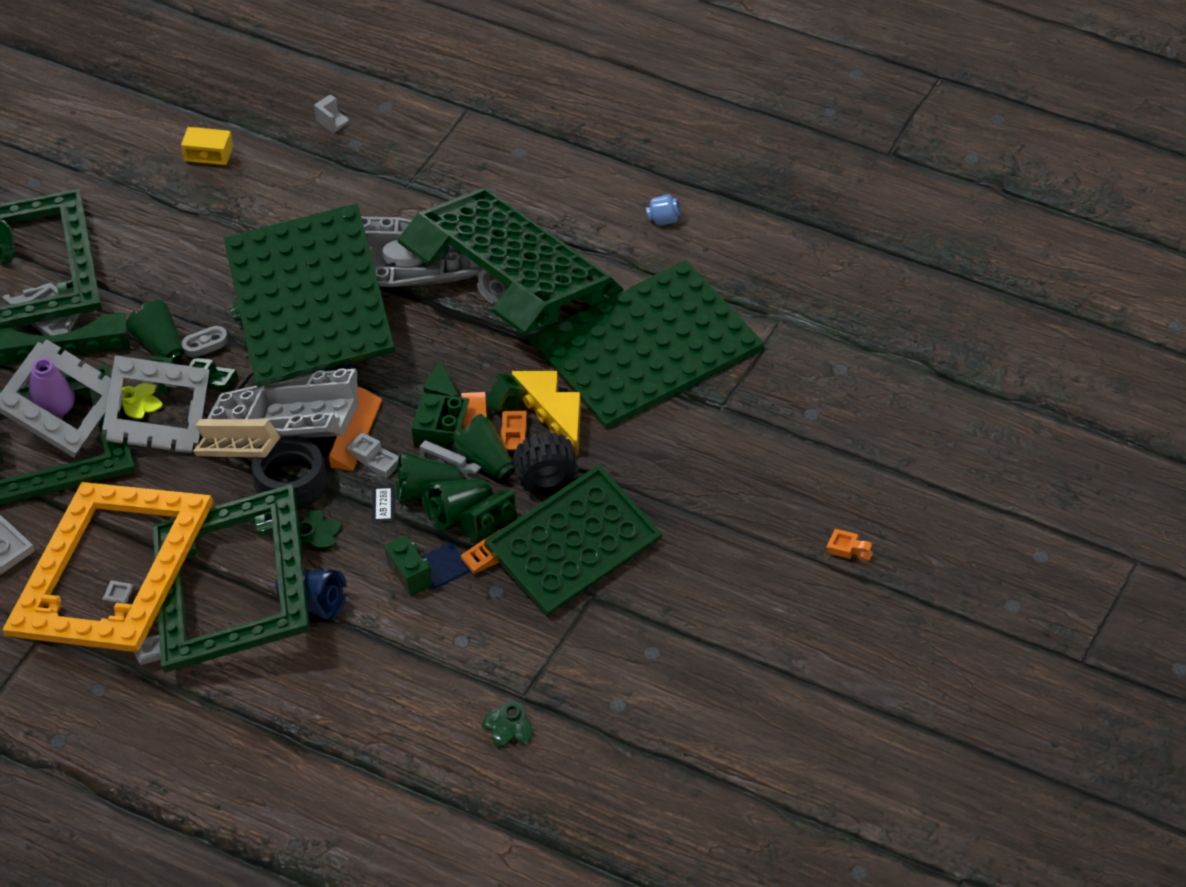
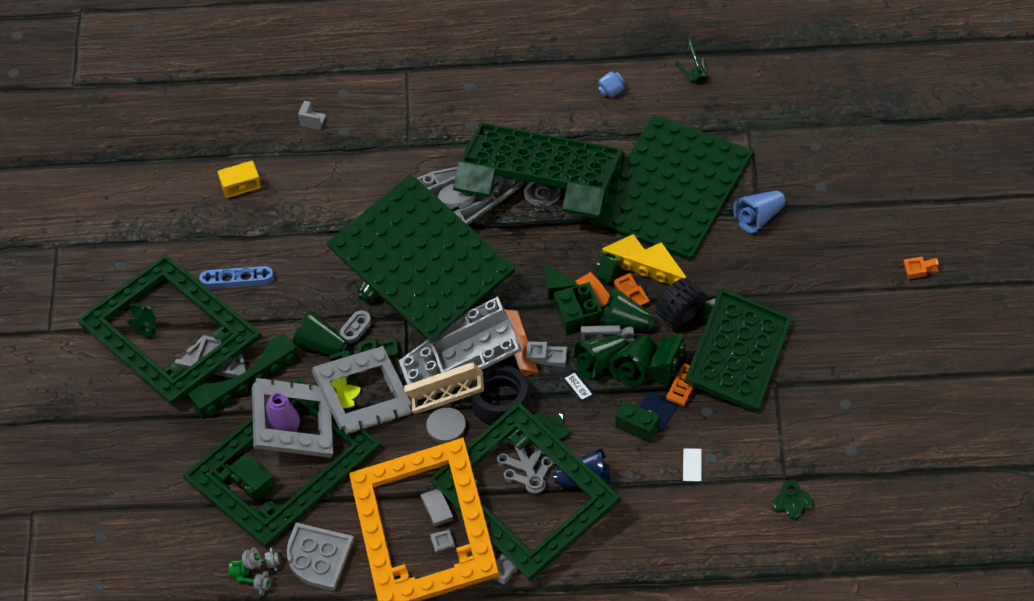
camera: 30 degrees left, 5 degrees up
(138, 557) = (436, 507): none -> light grey slope
(154, 251) = (236, 274): none -> medium blue beam
(216, 479) = (446, 425): none -> light grey tile
(257, 578) = (527, 465): none -> light grey plant
(435, 638) = (692, 464): none -> white sticker
(717, 404) = (758, 209): none -> medium blue cone
(768, 239) = (698, 74): none -> dark green plant

